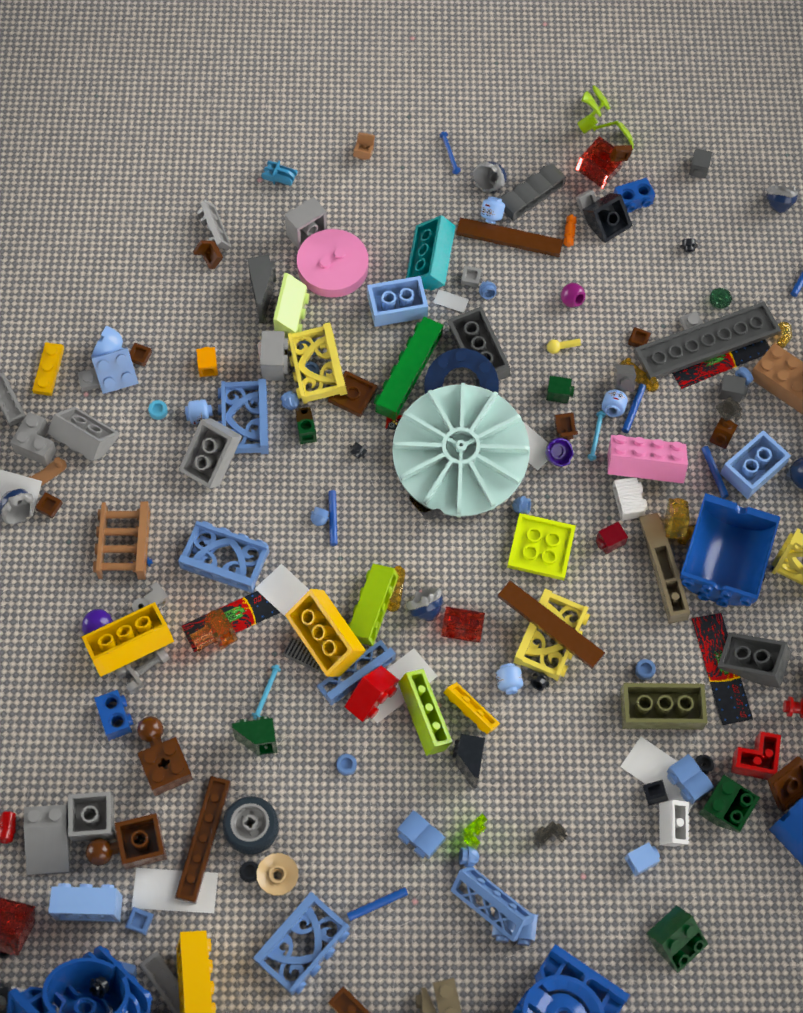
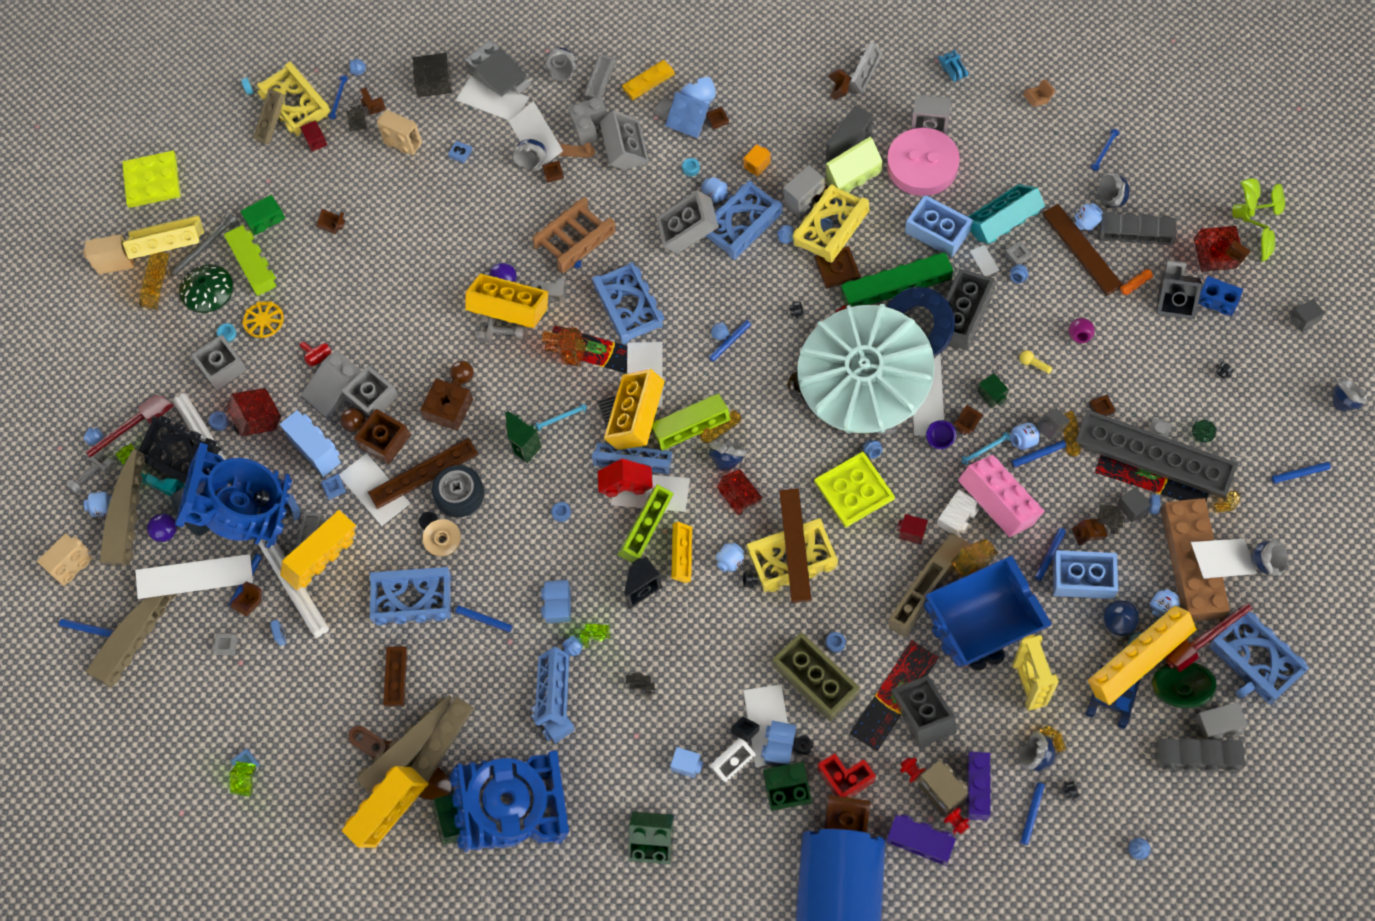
camera: 55 degrees right, 0 degrees up
(110, 716) = (447, 342): blue brick -> none
(305, 425) = (777, 260): dark green leg -> none

